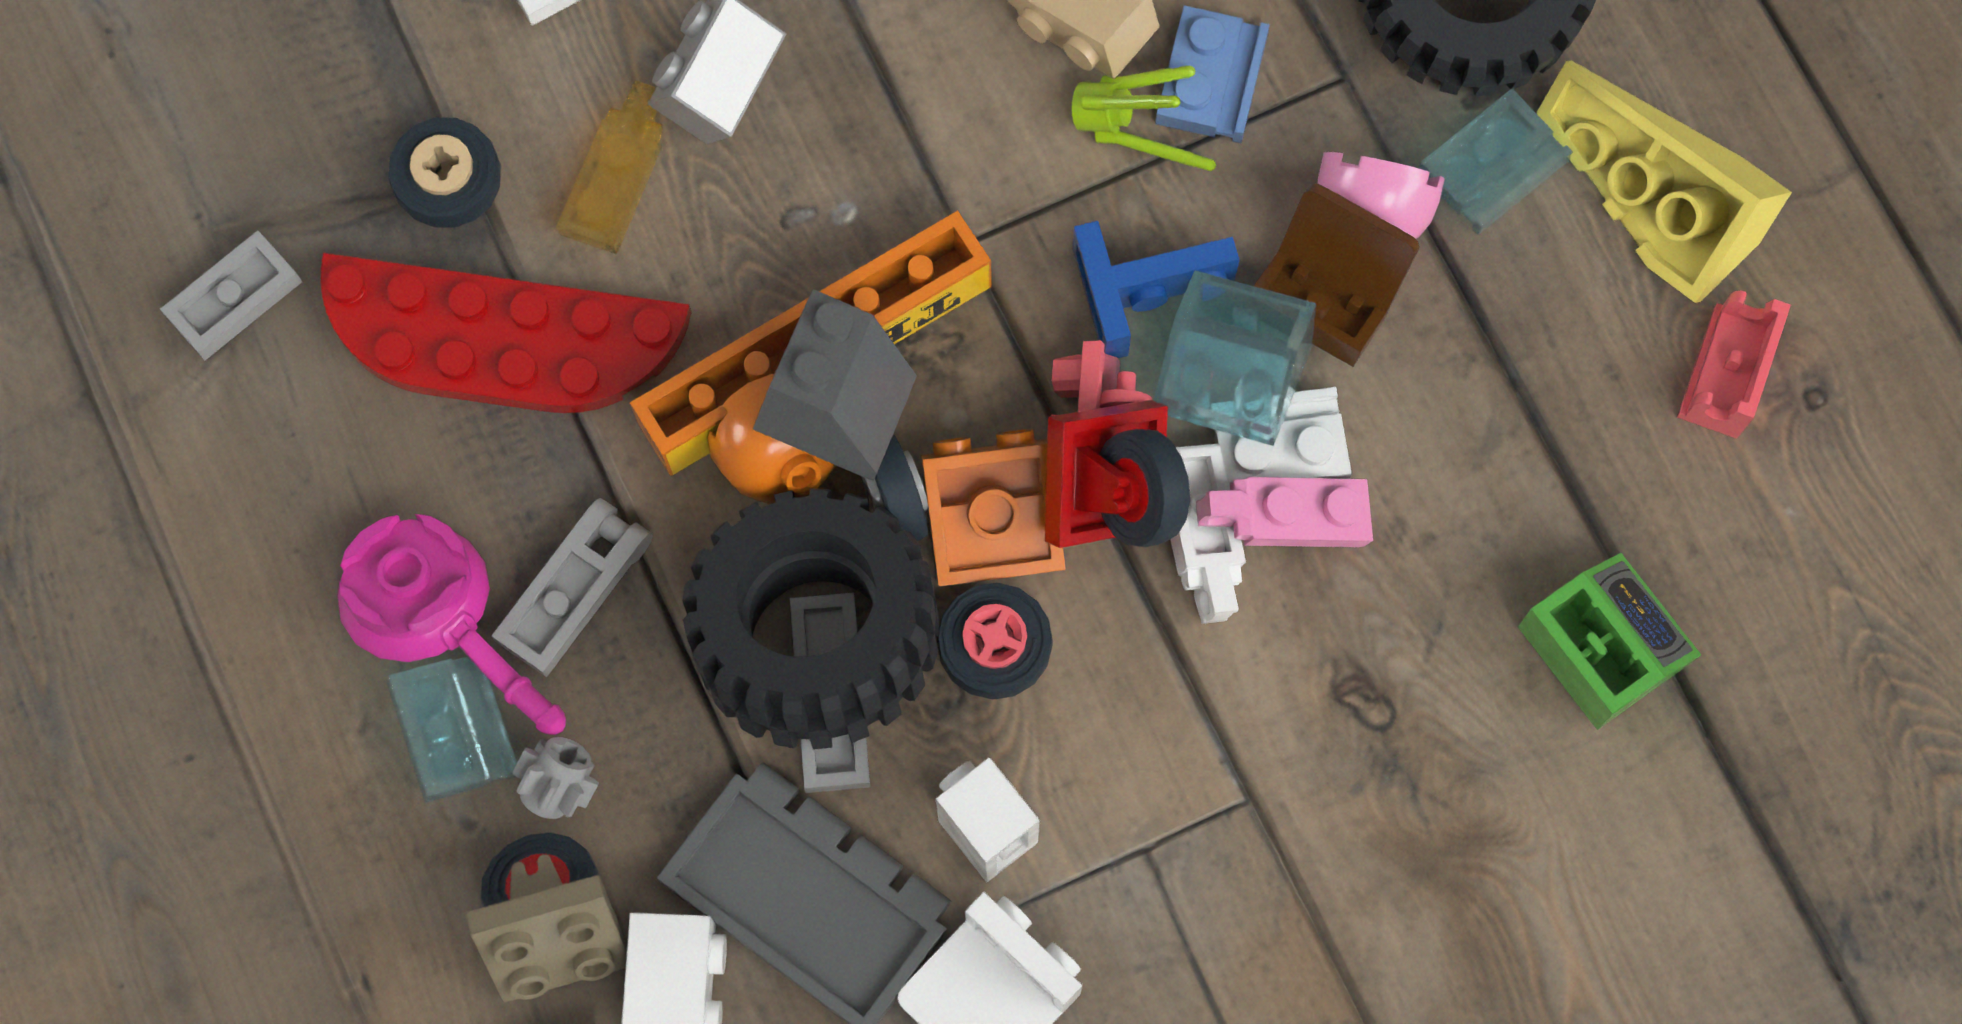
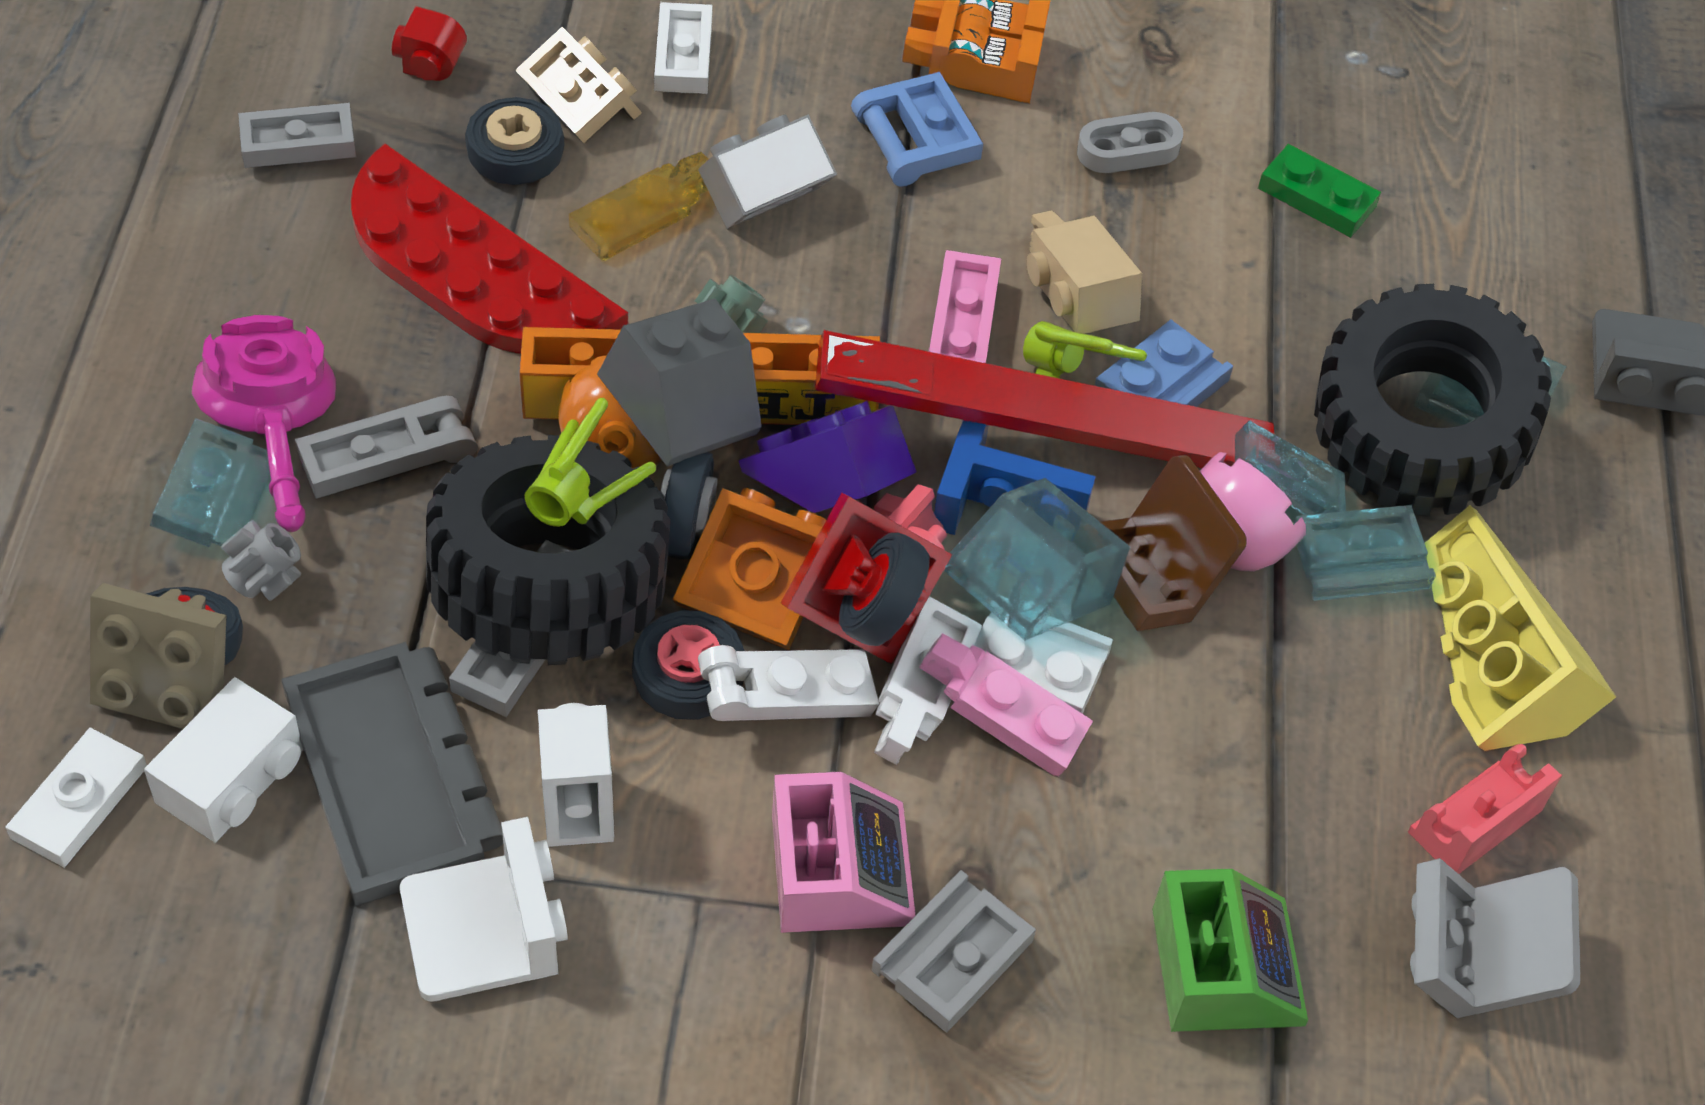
camera: 25 degrees right, 20 degrees down
(282, 111) = (429, 44): none -> red plate
(458, 69) = (575, 84): none -> bracket
(786, 248) = (738, 301): none -> sand green gear
(813, 578) = (563, 484): none -> lime plant
(994, 364) = (833, 455): none -> dark purple slope
(1001, 128) = (965, 306): none -> bright pink plate
(1097, 611) = (787, 684): none -> white plate
(1141, 189) = (1024, 400): none -> red tile
(1244, 748) = (839, 854): none -> bright pink slope
(1387, 771) = (953, 951): none -> light grey plate
(1391, 120) = (1305, 480): none -> clear light blue plate
(1815, 490) = (1496, 940): none -> light grey bracket

